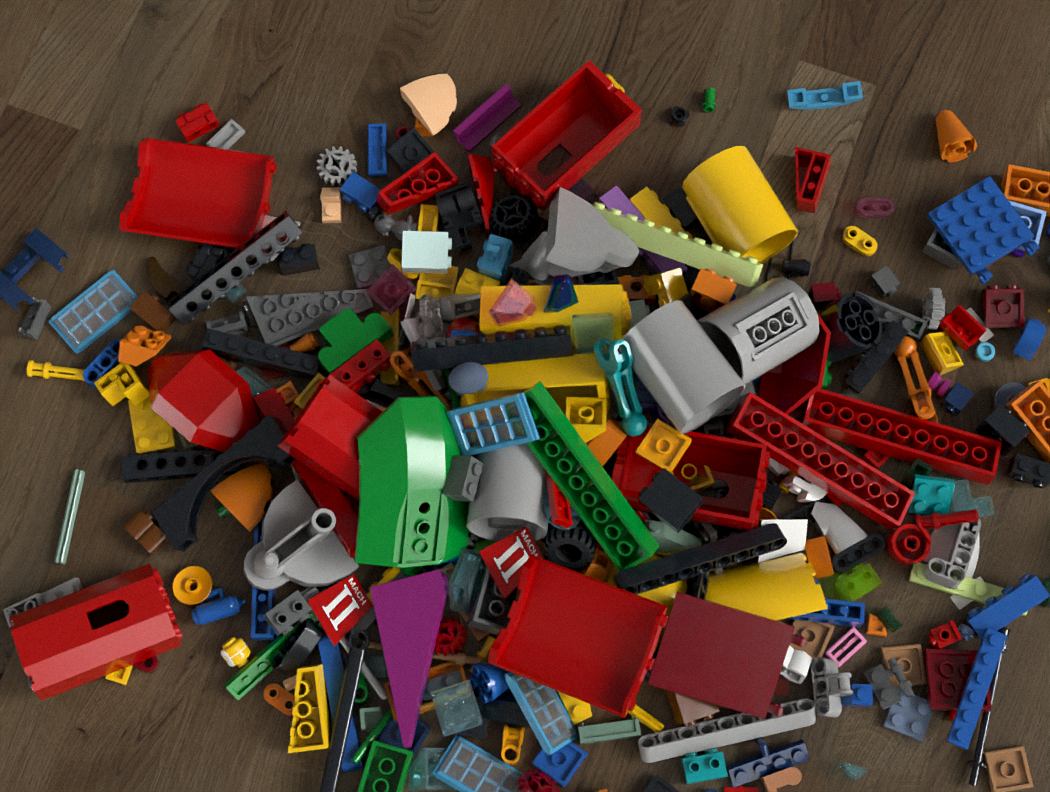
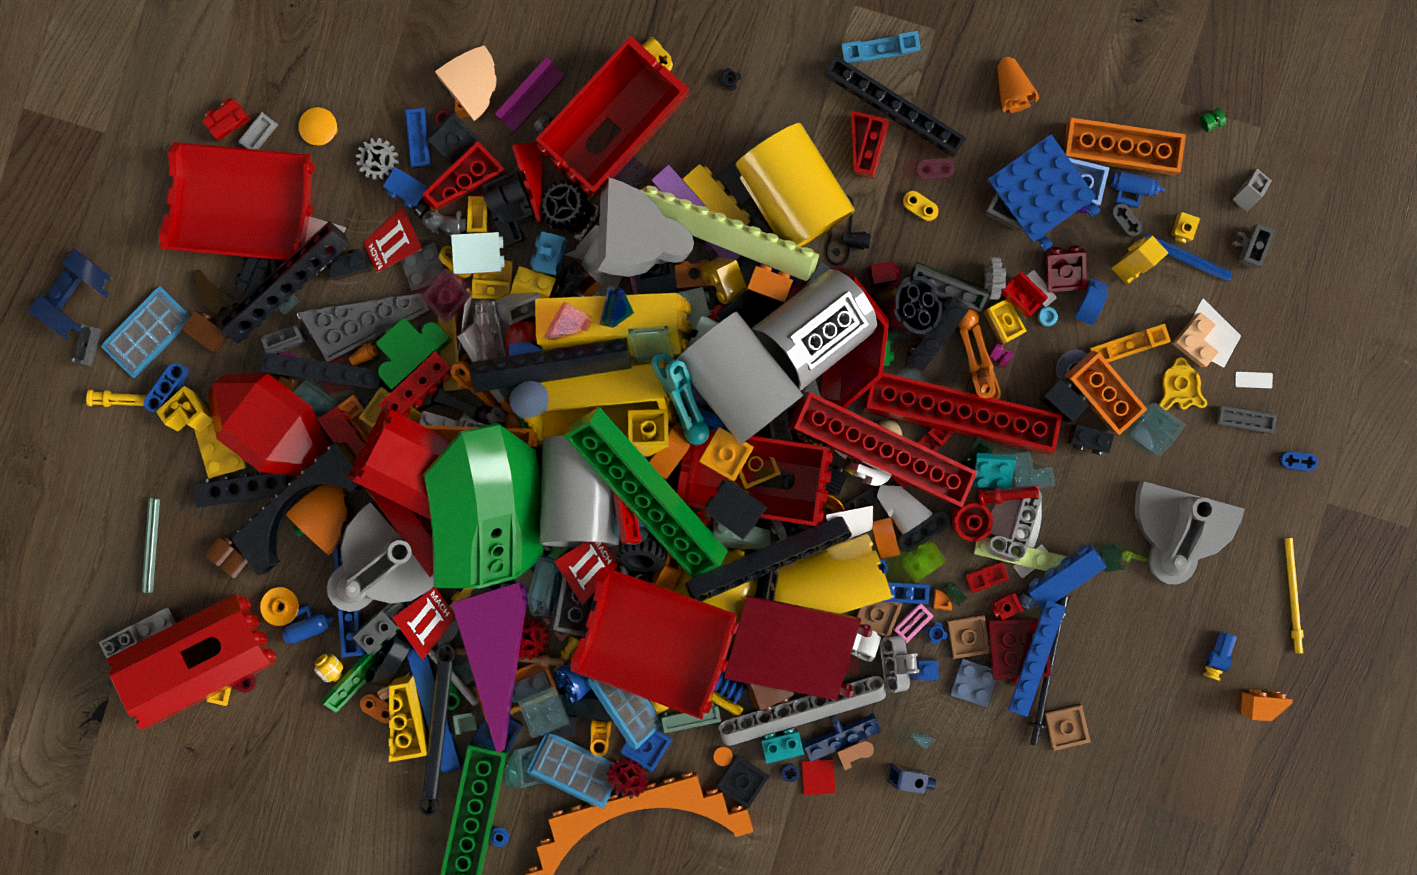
camera: 10 degrees left, 15 degrees up
(141, 345) = (199, 370): orange slope -> none
(283, 135) = (317, 126): none -> light orange dish
(331, 205) = (375, 200): light nougat slope -> none
(343, 242) = (392, 241): none -> red sticker
(372, 736) = (466, 741): green bar -> none
(463, 478) = (531, 501): dark grey brick -> none
(493, 424) = (556, 450): dark azure piece -> none
(640, 775) = (723, 756): none -> orange tile
(651, 699) = (730, 687): none -> blue piece
(709, 98) = (760, 59): green pin -> none
(841, 149) = (894, 106): none -> black brick
(871, 653) = (941, 633): none -> blue plate
(884, 282) = (946, 251): dark grey brick -> none
(884, 688) = (949, 659): dark grey plate -> none
(923, 605) = (987, 577): none -> red slope
(956, 399) = (1018, 370): dark blue brick -> none

